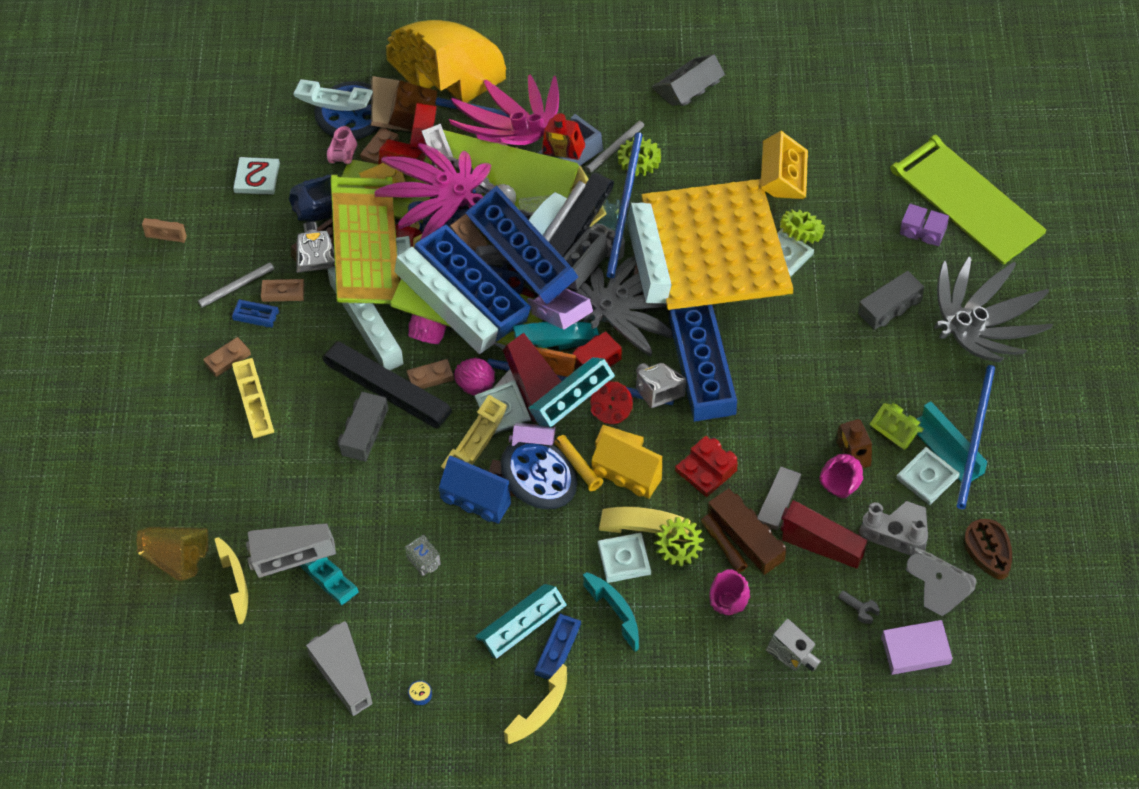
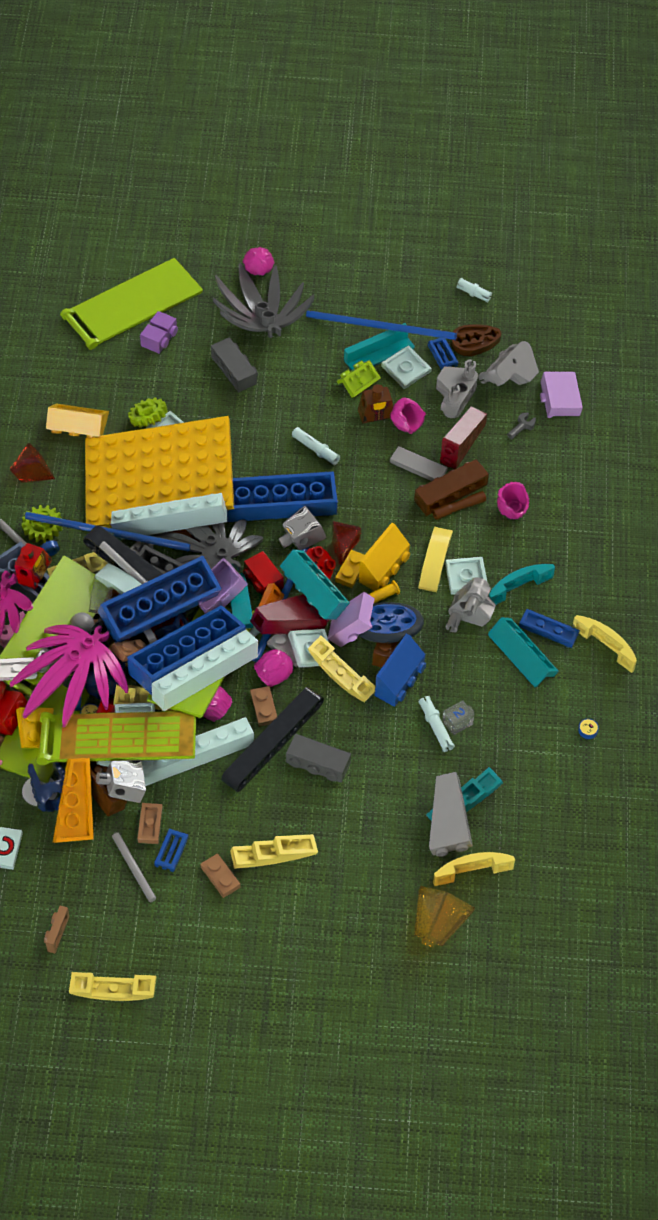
camera: 90 degrees left, 0 degrees up
(105, 278) = (112, 988): none -> light yellow slope
(287, 219) = (75, 806): none -> light orange wing
(340, 665) = (564, 783): light grey slope -> none
(425, 529) = (432, 716): none -> light aqua pin
(570, 551) = (471, 604): none -> light grey piece
(608, 166) = (51, 547): none -> blue tile
(649, 424) = (344, 539): none -> clear red slope
(679, 550) = (460, 530): lime gear -> none
(707, 466) = (383, 507): red plate -> none
(716, 138) = (31, 466): none -> clear red slope
(782, 397) = (321, 449): none -> light aqua pin
(793, 647) = (561, 468): light grey torso -> none
(963, 521) = (436, 355): none -> blue tile
(1054, 307) = (258, 261): none -> dark pink hair
(1070, 541) = (474, 290): none -> light aqua pin

